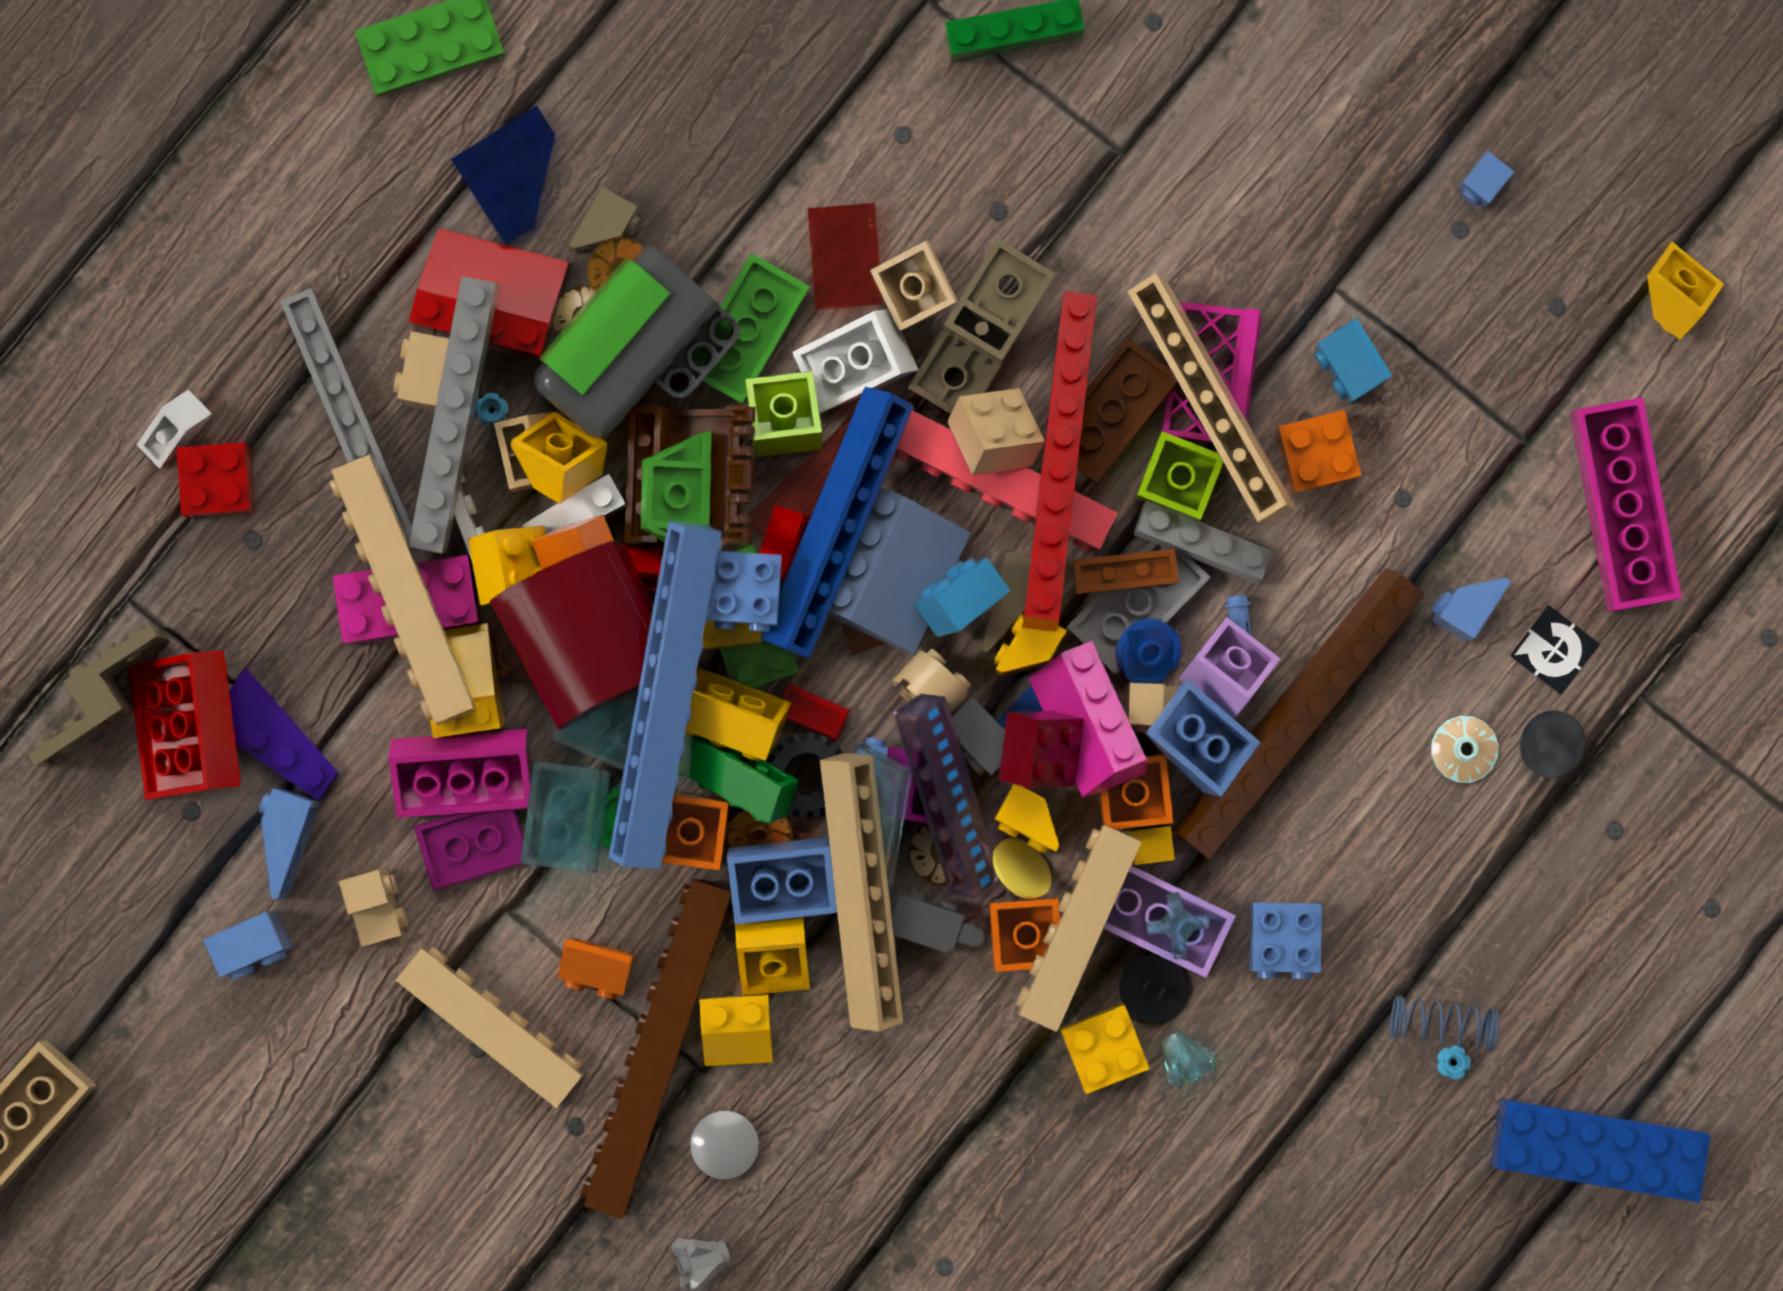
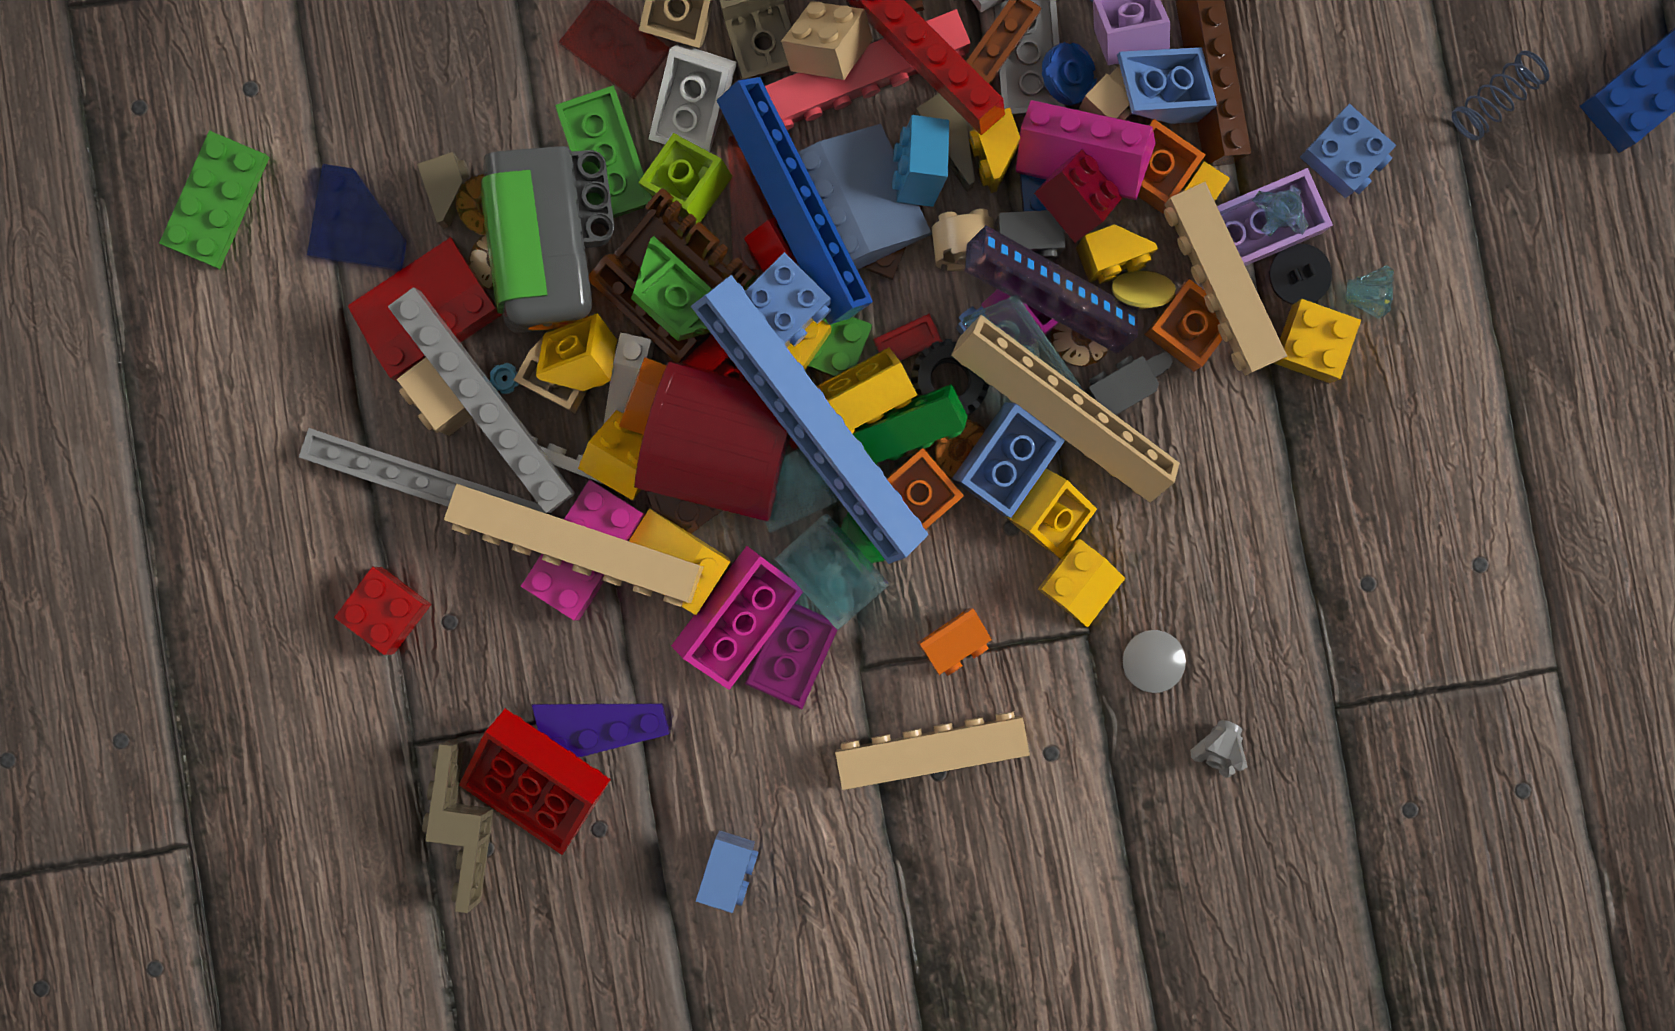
camera: 45 degrees left, 0 degrees up
(173, 427) = (317, 604): white slope -> none
(286, 830) = (670, 775): medium blue slope -> none
(374, 906) = (777, 760): tan brick -> none
(657, 1048) = (1048, 649): reddish brown brick -> none
(1445, 1067) = (1521, 116): medium azure plate -> none

